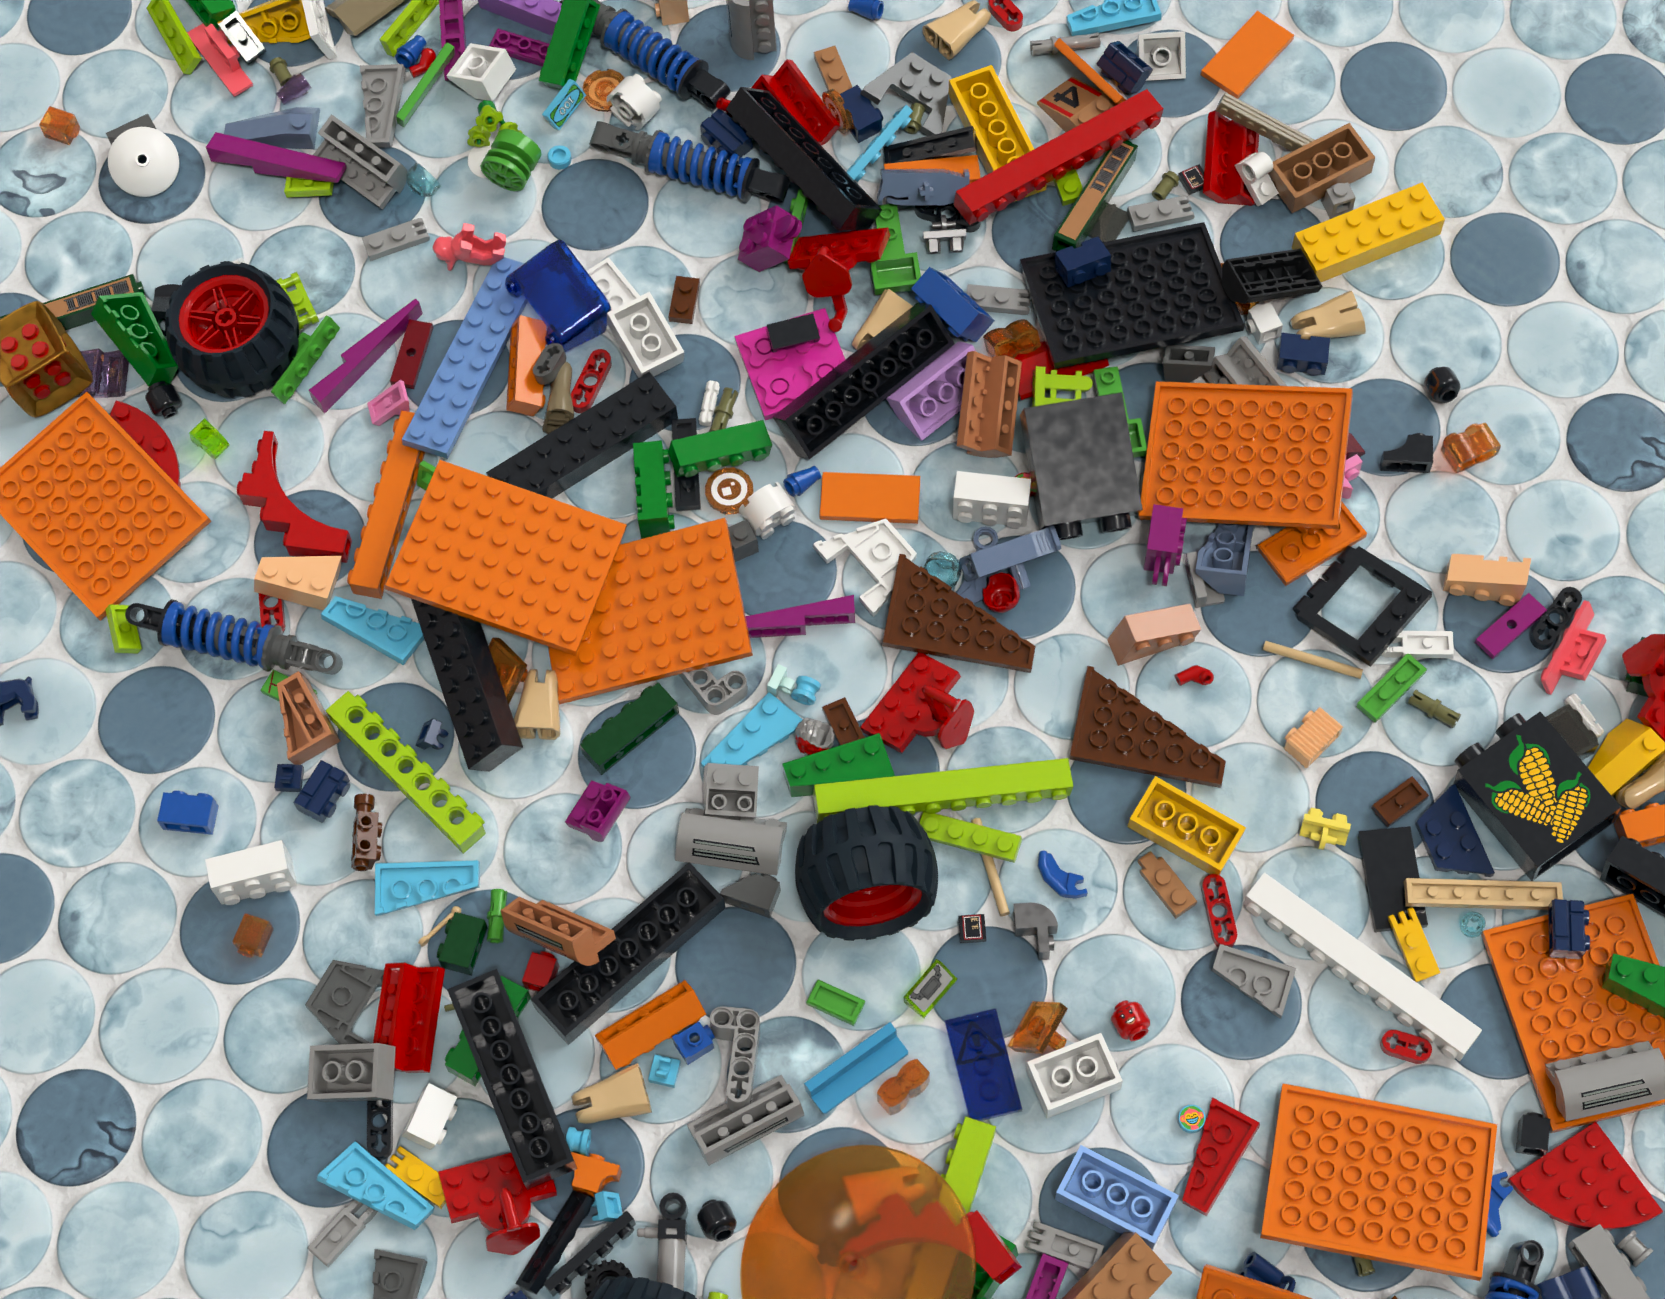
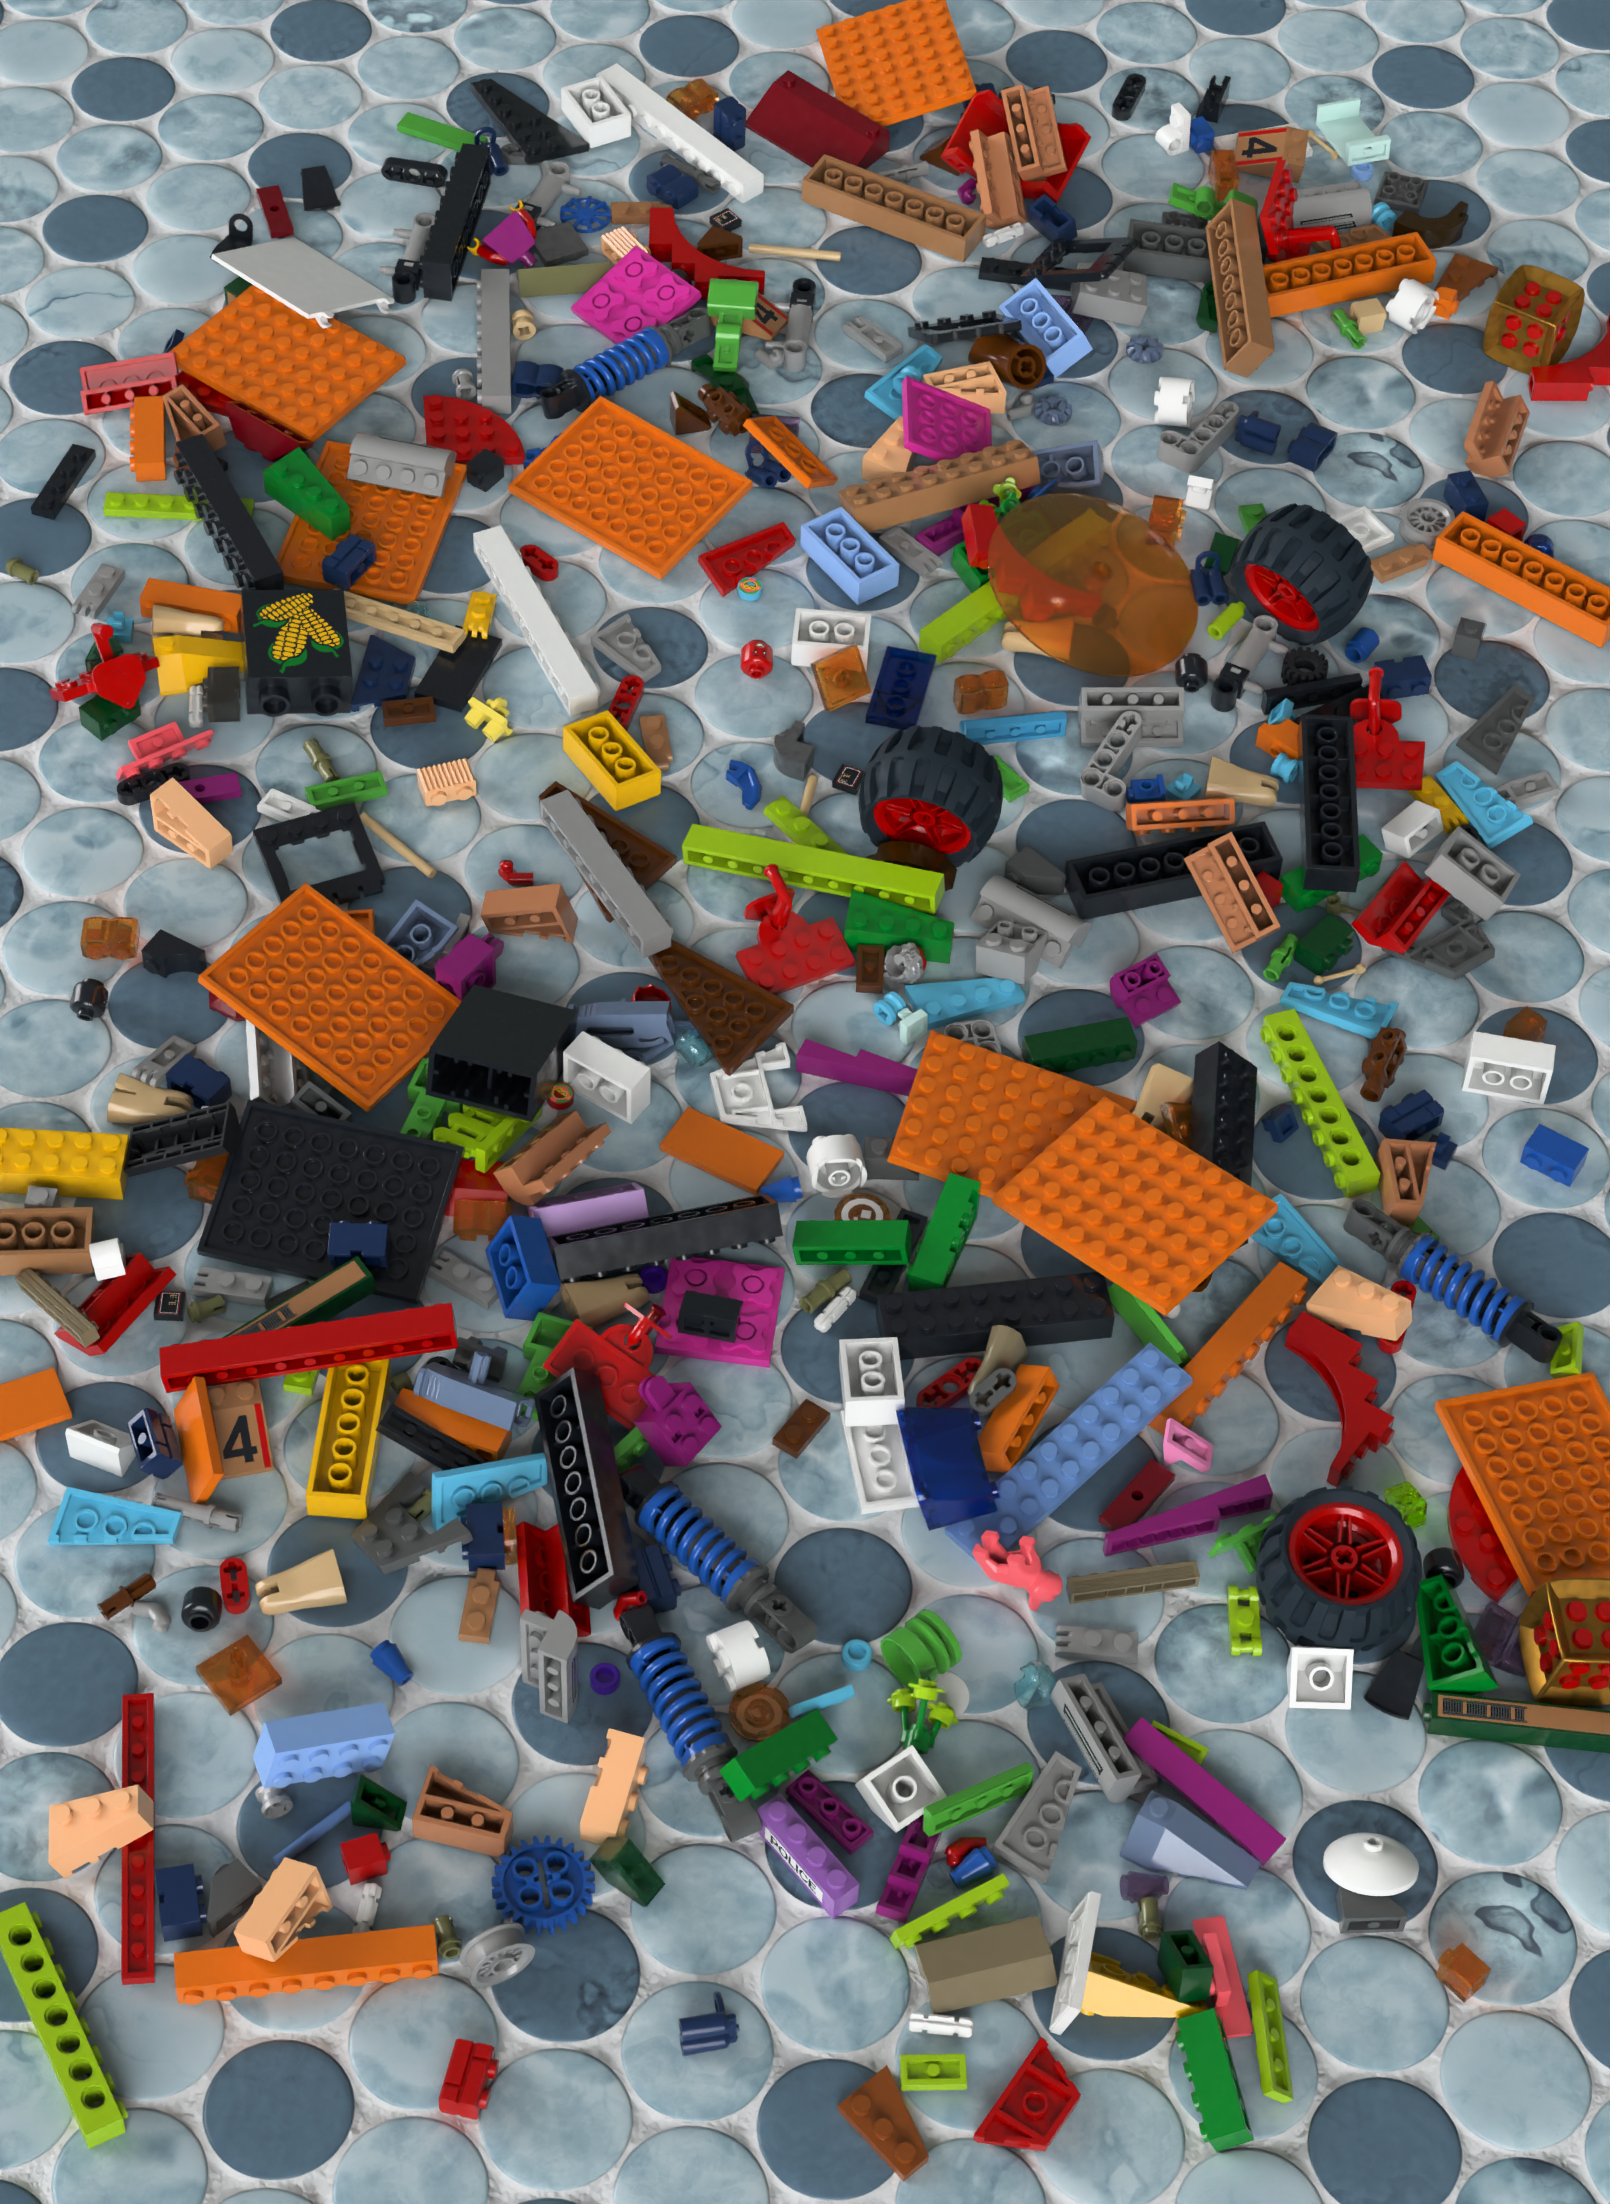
camera: 160 degrees left, 15 degrees down
(388, 292) = (1132, 1582): none -> dark tan piece
(721, 65) = (604, 1678): none -> dark purple tile
(1114, 694) = (606, 873): none -> light grey brick
(1342, 356) = (162, 1060): none -> light grey hinge

